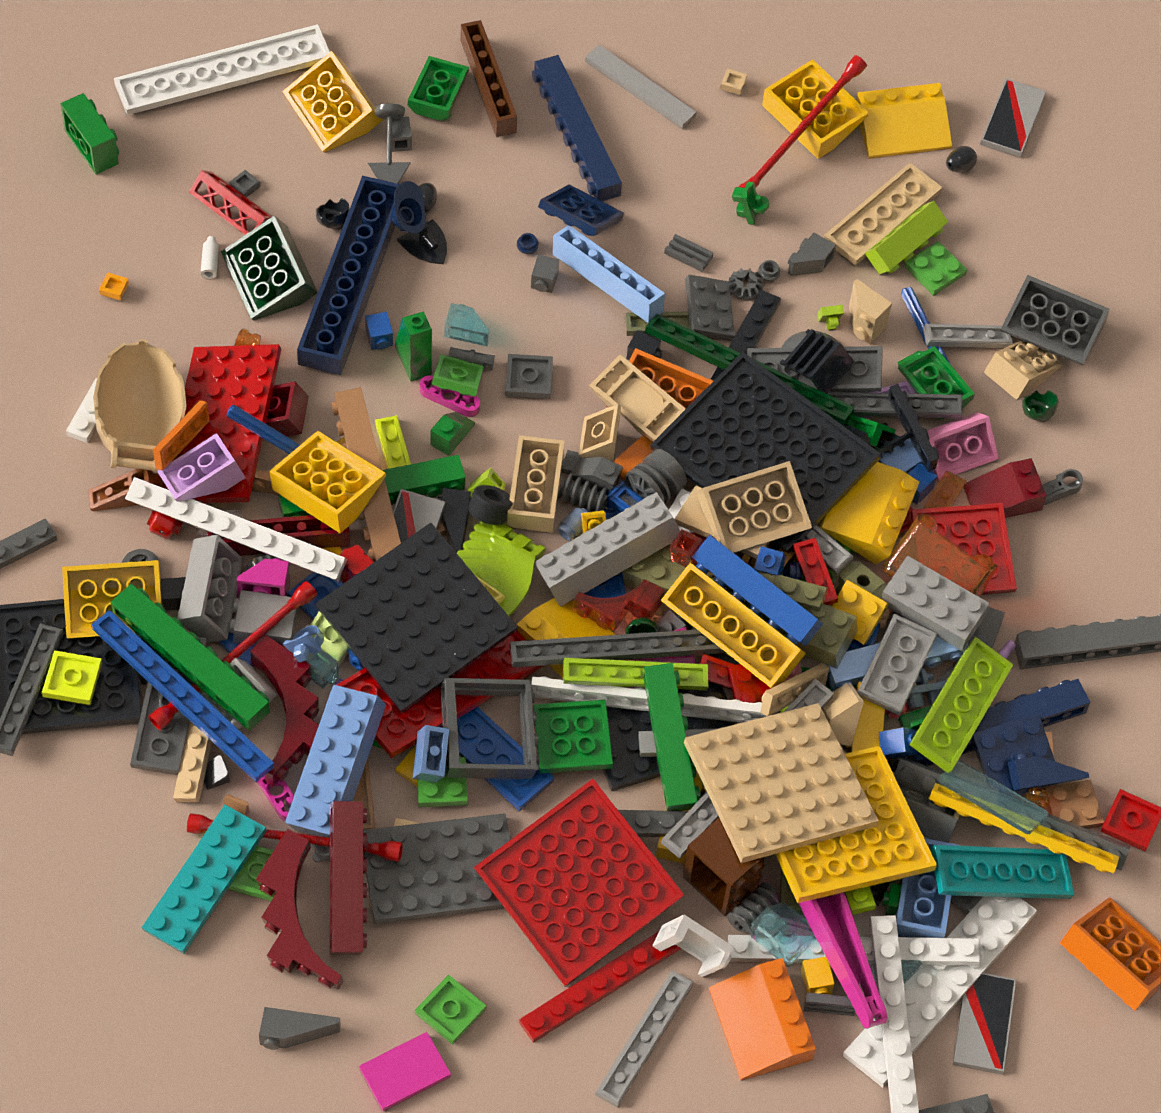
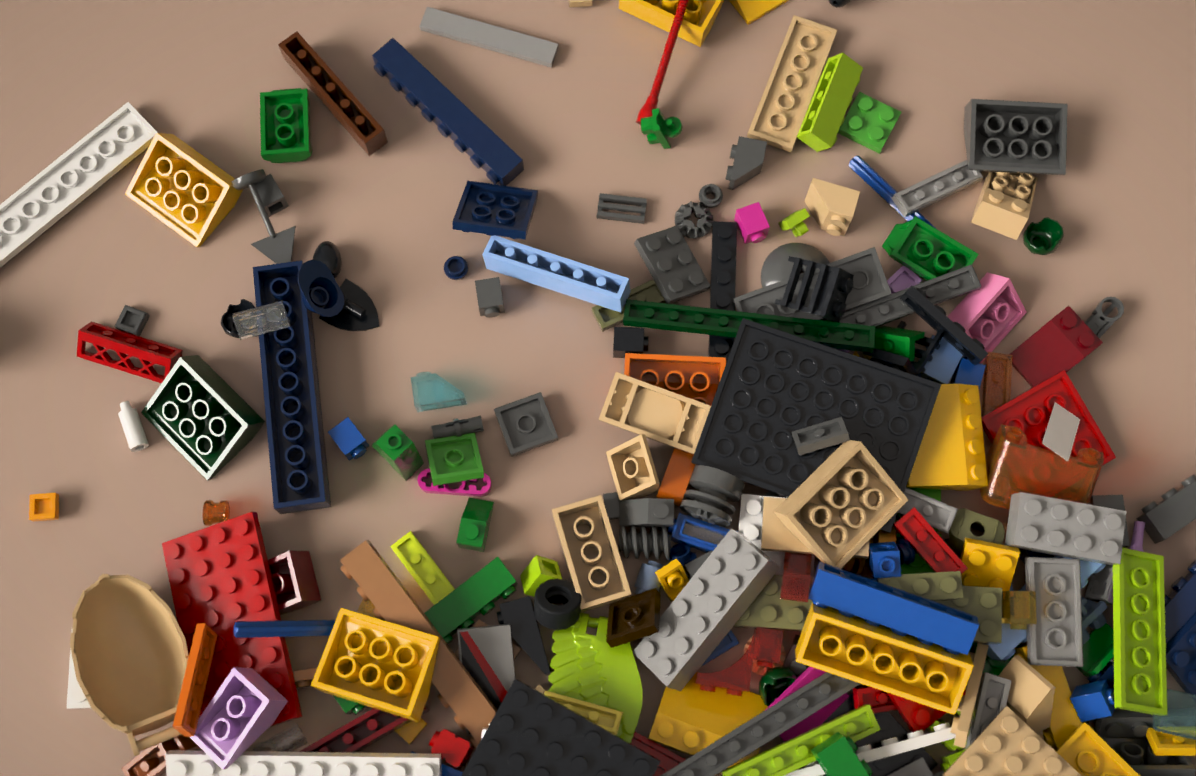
camera: 20 degrees left, 15 degrees up
(351, 212) = (261, 320): none -> clear plate
(547, 535) = (633, 618): none -> dark brown plate
(753, 455) = (820, 436): none -> dark grey plate
(793, 302) = (752, 223): none -> dark pink brick
(865, 644) = (1019, 608): none -> clear yellow brick
(971, 538) = (1061, 431): none -> white sticker

